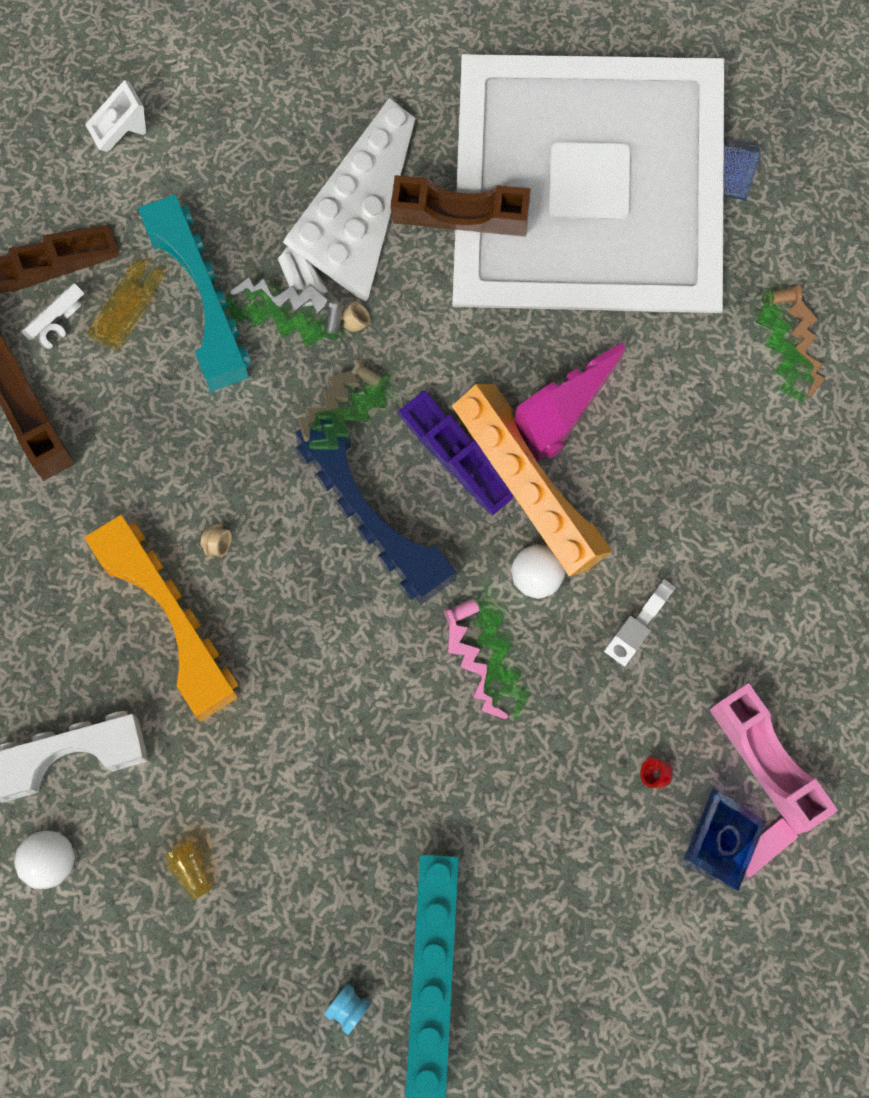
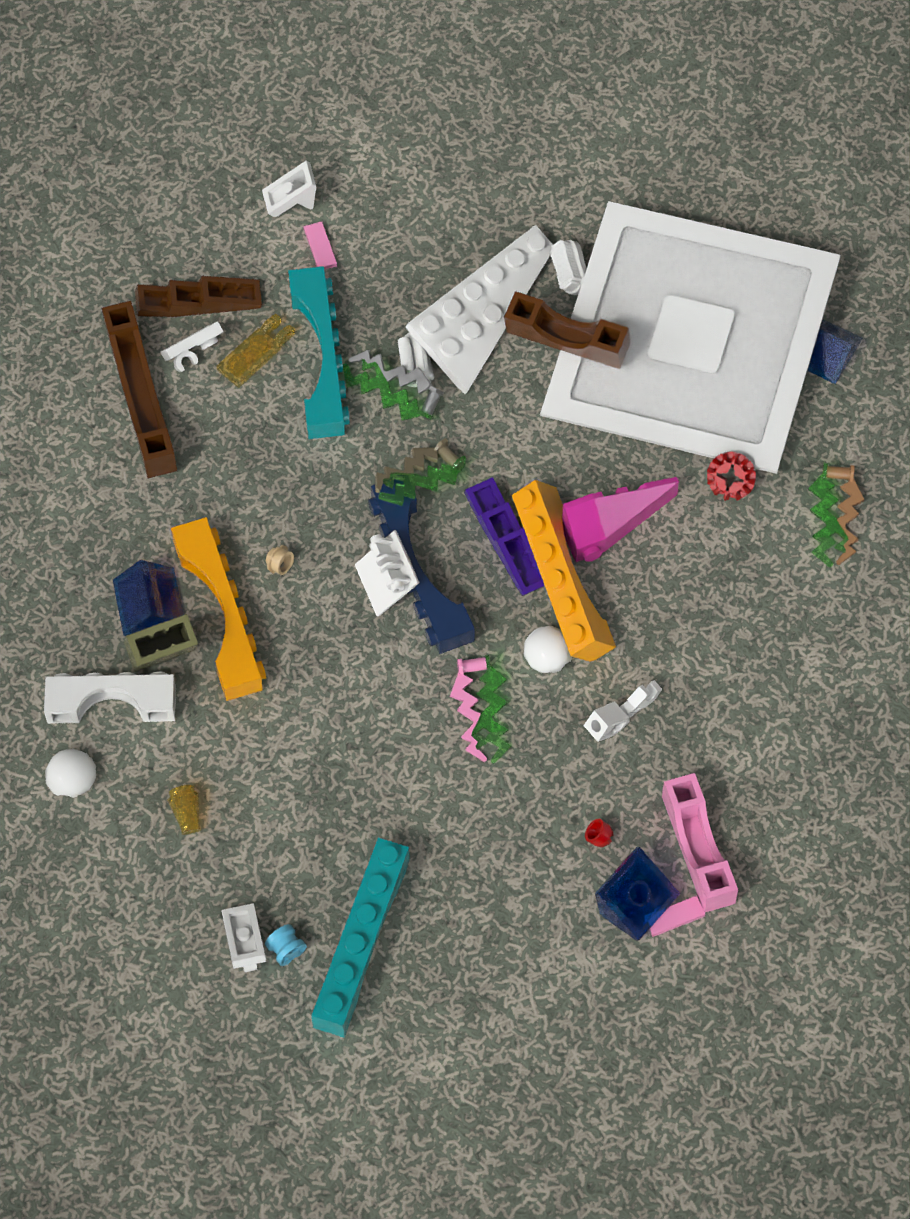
camera: 20 degrees right, 10 degrees down
(80, 623) = (146, 596): none -> clear blue slope
(106, 684) = (160, 643): none -> olive brick
(164, 172) = (320, 245): none -> bright pink piece
(297, 1013) = (244, 937): none -> white plate
(340, 528) = (386, 572): none -> white hinge
(355, 317) = (451, 405): tan hinge -> none
(437, 135) = (569, 265): none -> white piece
(664, 316) = (743, 469): none -> red gear

